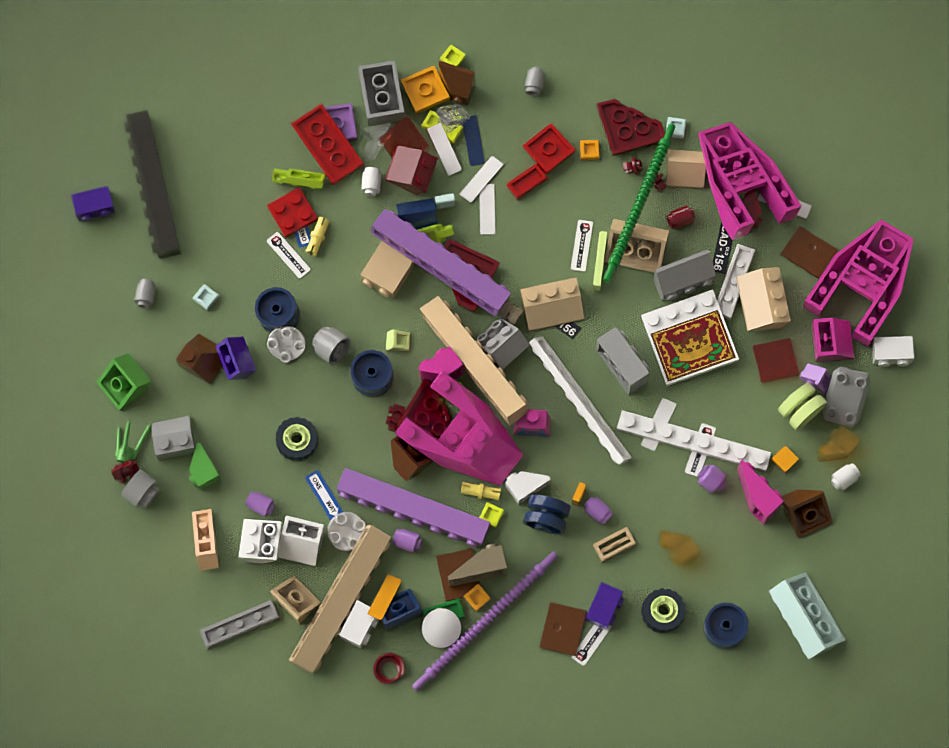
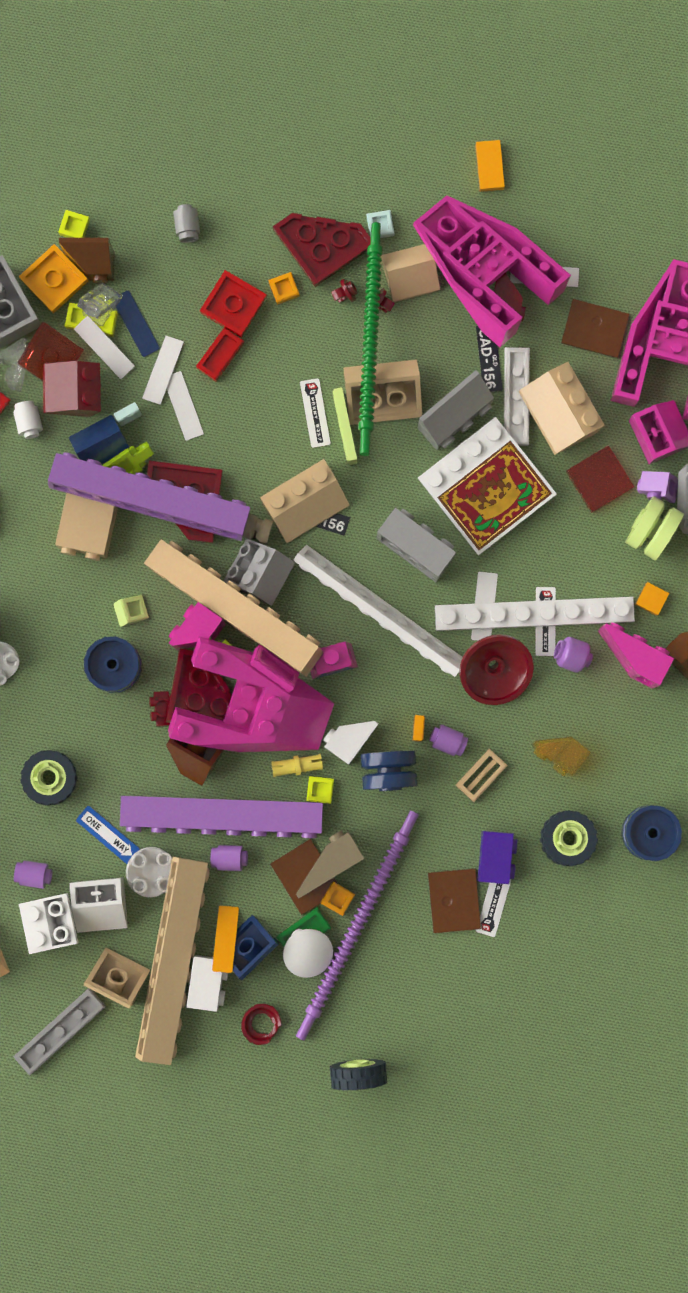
camera: 20 degrees left, 10 degrees up
(331, 344) = (49, 645): light grey piece -> none
(448, 726) = (358, 1074): none -> black wheel
(488, 410) = (274, 668): none -> dark pink tile
(651, 481) = (505, 678): none -> dark red dish
(680, 217) = (425, 337): dark red brick -> none
(770, 112) = (490, 165): none -> light orange tile

